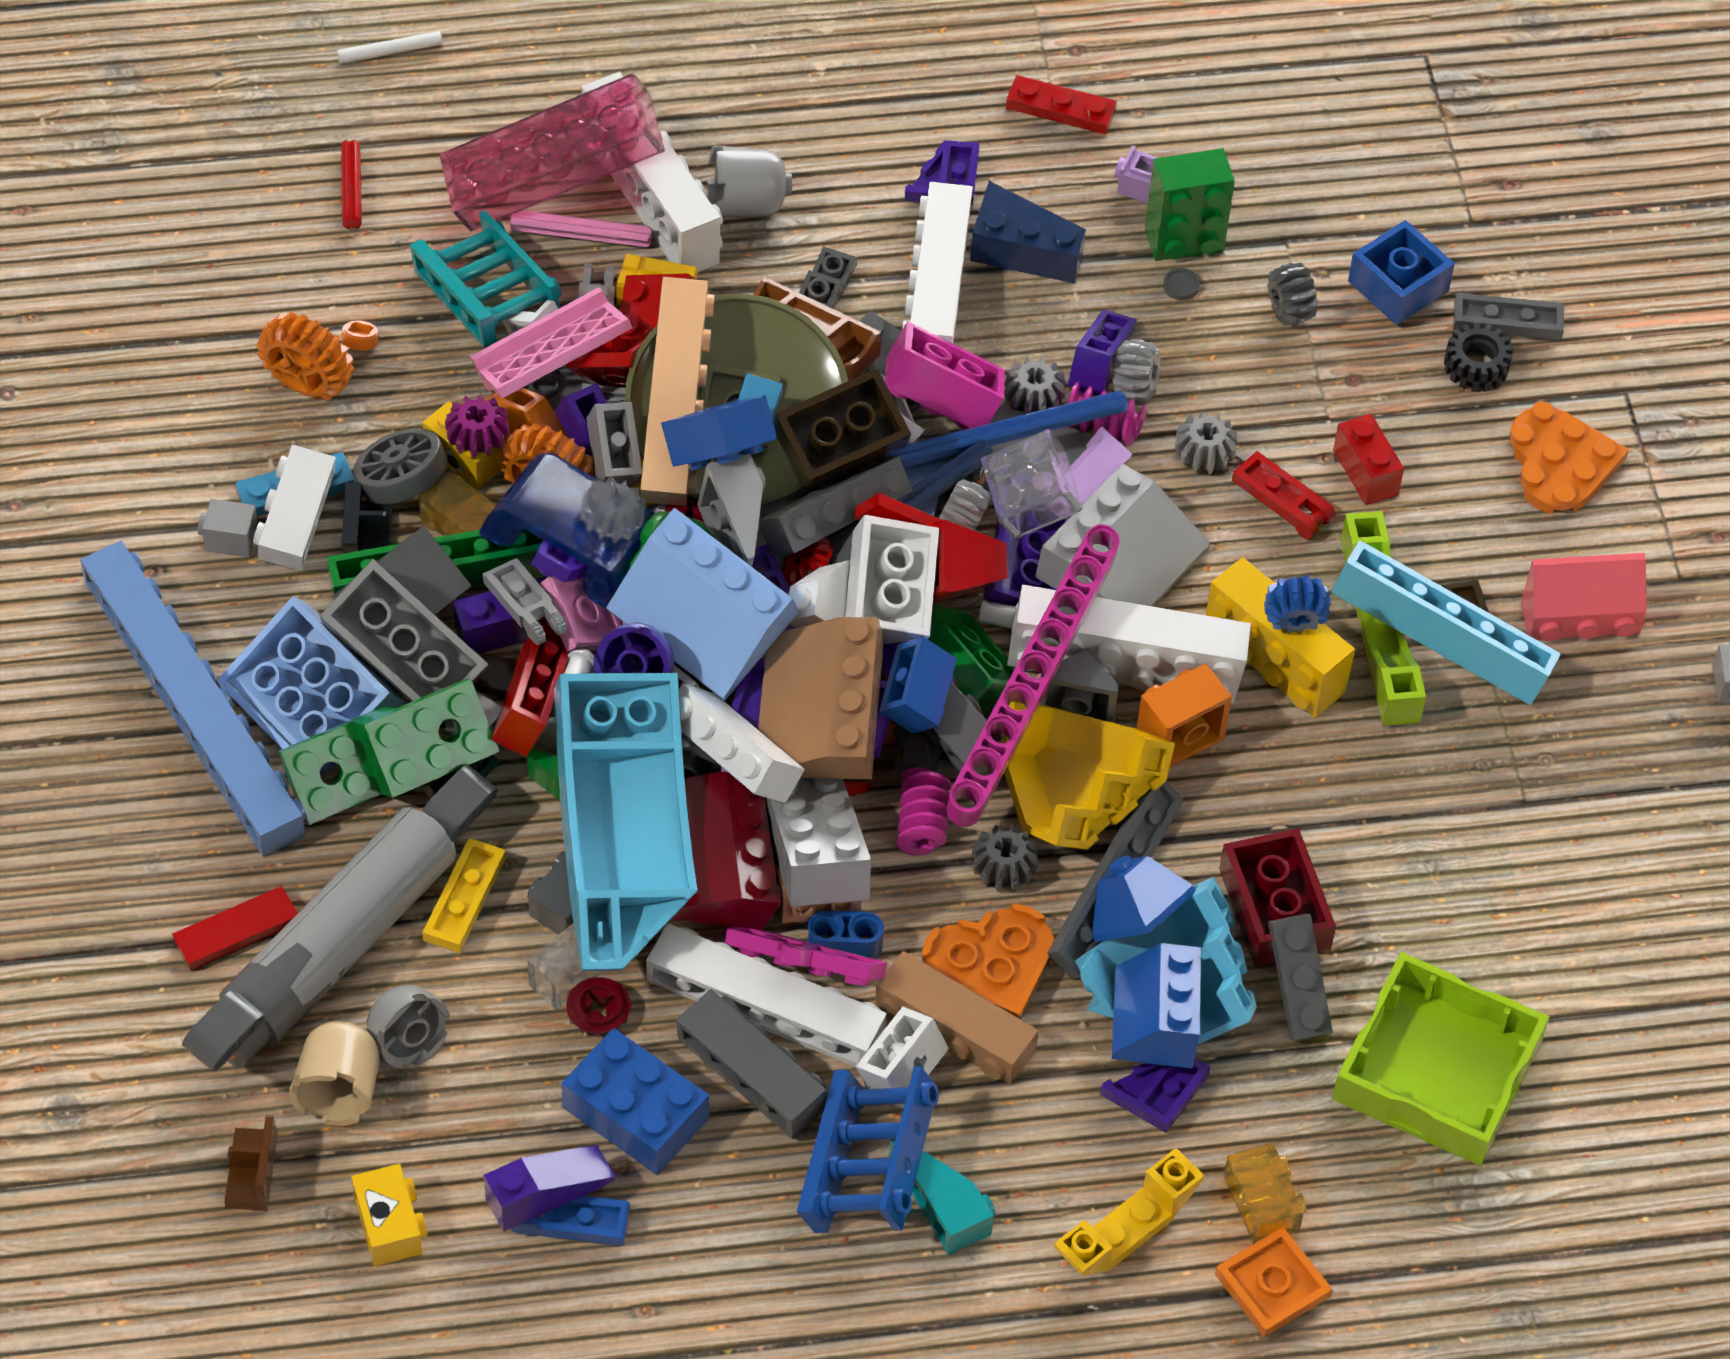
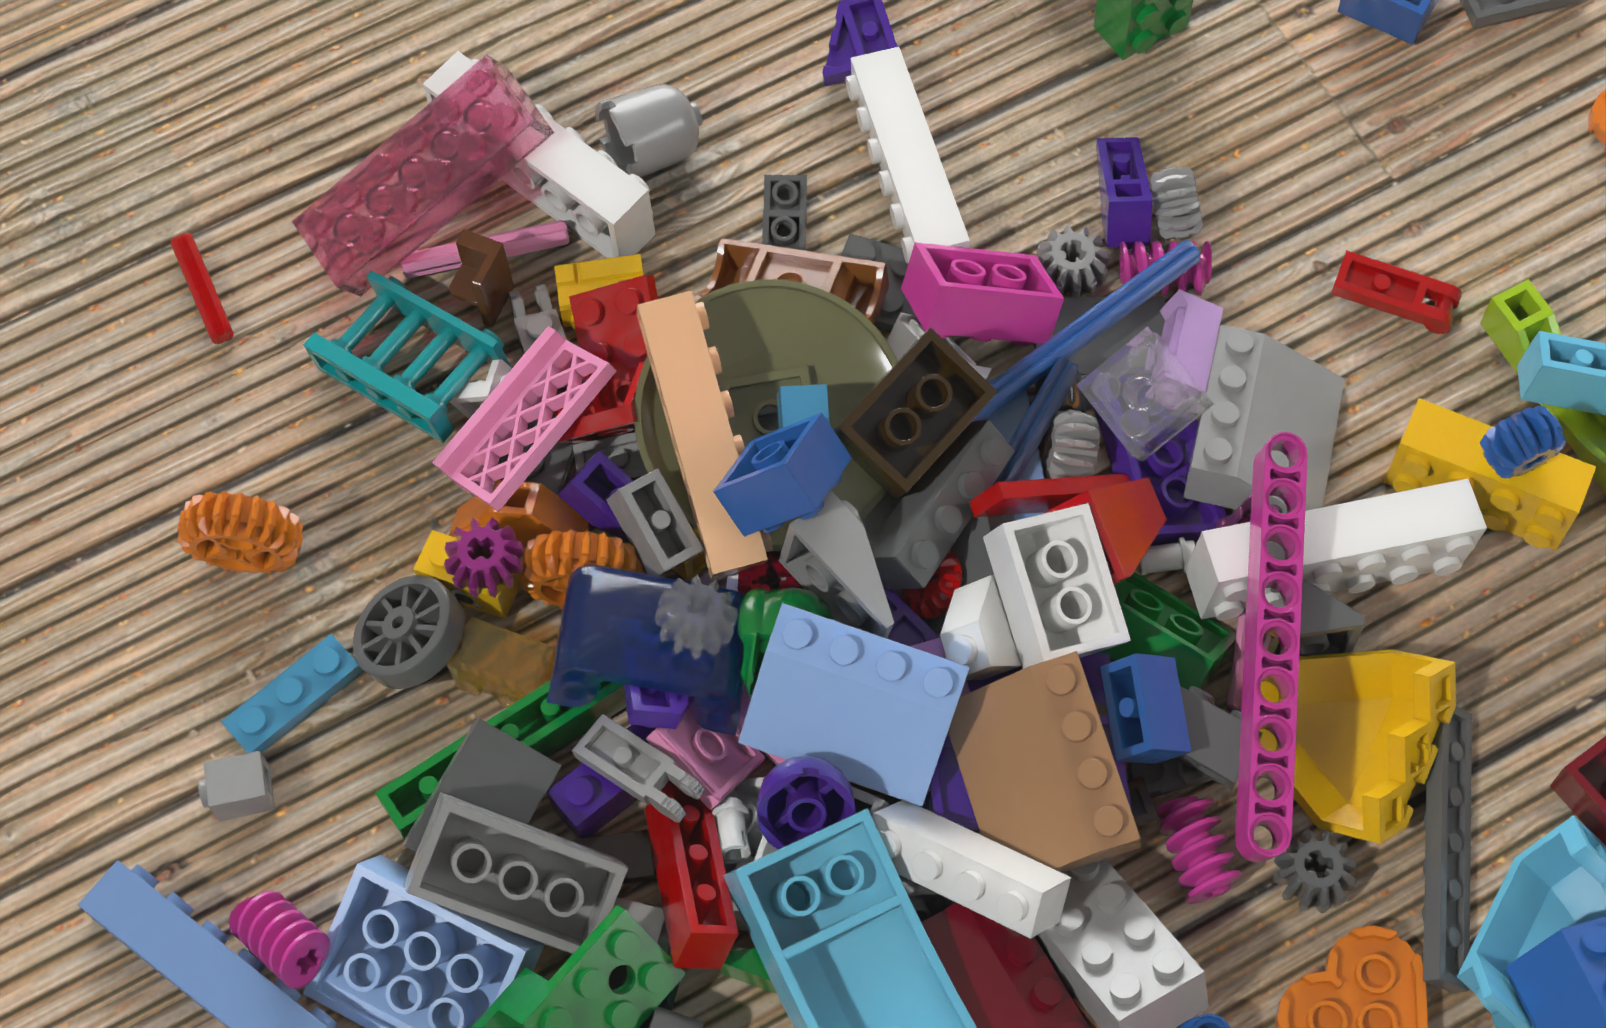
camera: 15 degrees left, 10 degrees up
(216, 630) = (280, 937): none -> dark pink piece
(295, 507) = (306, 734): white brick -> none
(360, 335) = (290, 476): orange tile -> none
(364, 522) = (398, 724): black panel -> none
(389, 47) = (176, 104): white bar -> none
(569, 242) = (483, 275): none -> reddish brown panel
(1025, 237) = (980, 84): dark blue wedge -> none
(1136, 898) = (1501, 878): blue slope -> none
(1181, 284) = (1164, 78): dark grey piece -> none
(1187, 711) = (1434, 607): orange brick -> none
(1206, 442) = (1286, 260): light grey gear -> none
(1292, 293) = (1297, 50): dark grey gear -> none
(1368, 459) = (1468, 216): red brick -> none
(1483, 342) = (1523, 33): black tyre -> none

